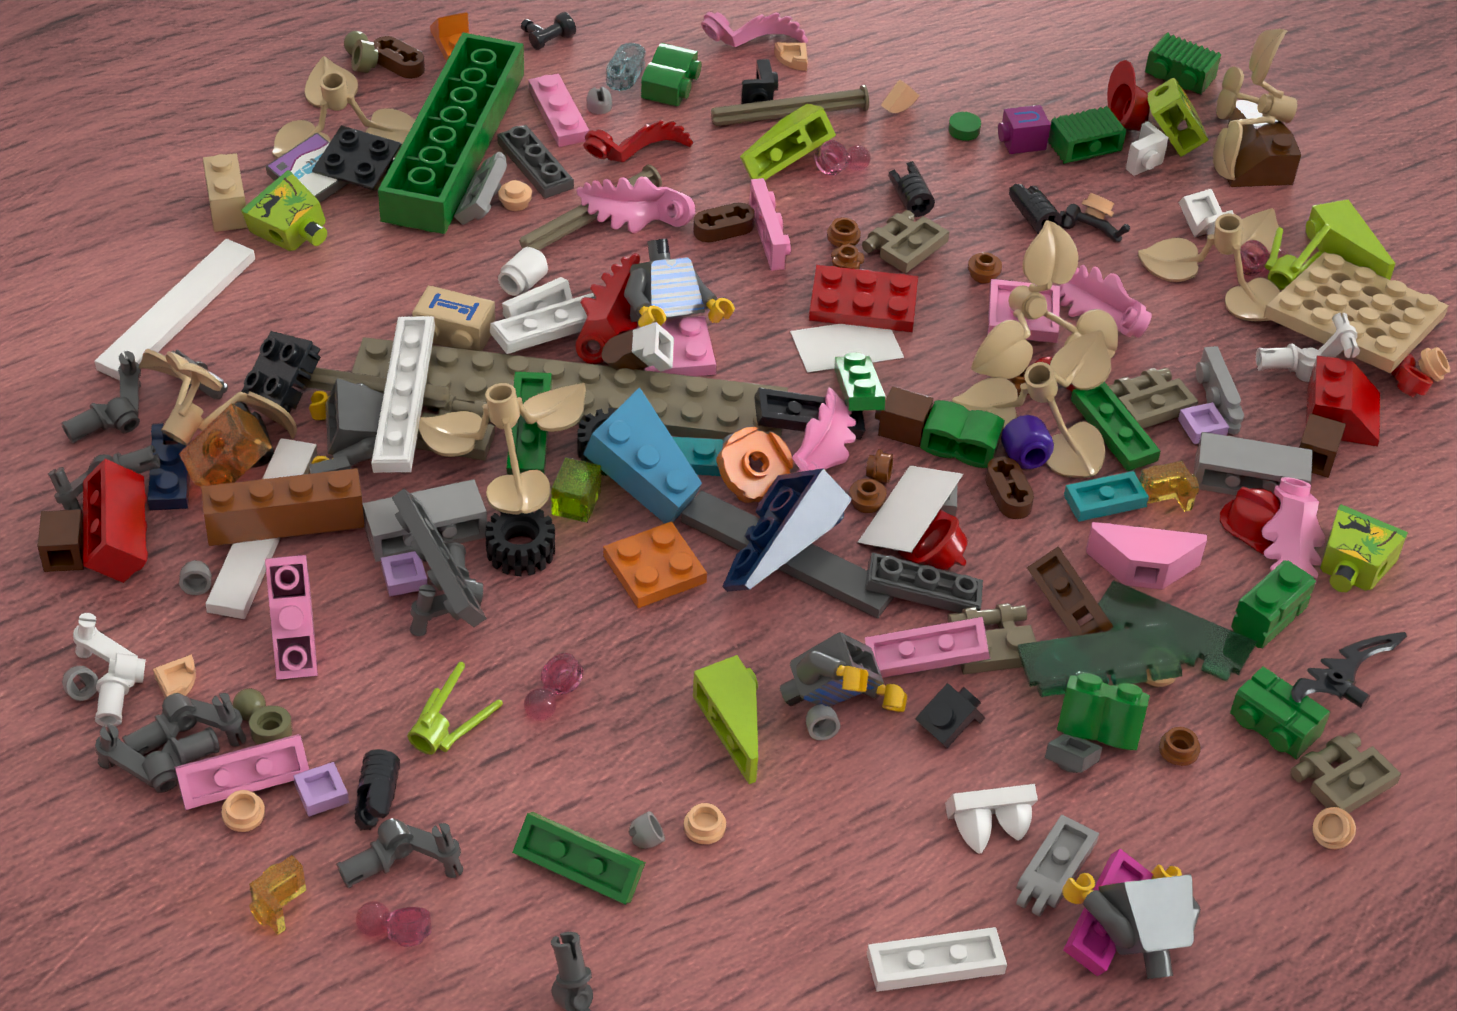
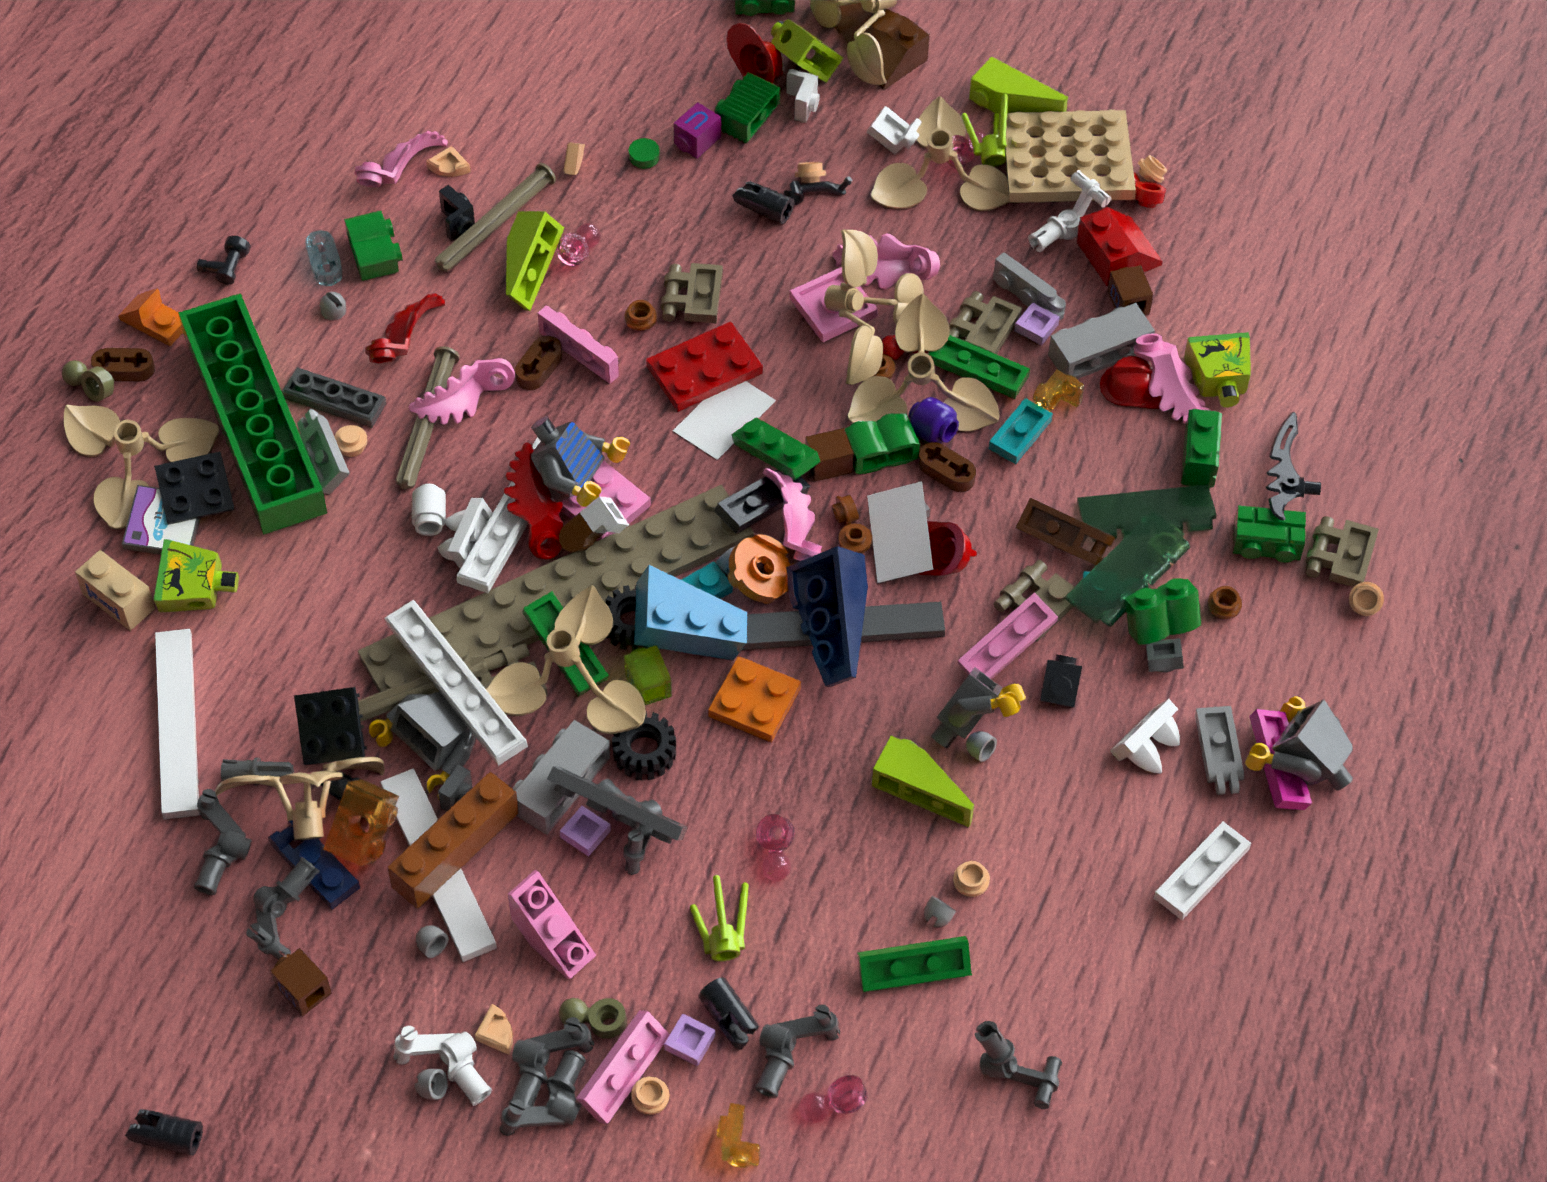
camera: 35 degrees left, 10 degrees up
(114, 521) = (330, 938): red brick -> none
(459, 318) = (422, 581): tan brick -> none
(558, 109) = (307, 335): bright pink plate -> none
(847, 257) = (660, 343): dark orange plate -> none
(913, 190) = (659, 242): black hinge -> none
(923, 584) = (958, 589): dark grey tile -> none
(984, 267) = (770, 280): dark orange plate -> none
(1145, 554) = (1084, 464): bright pink slope -> none

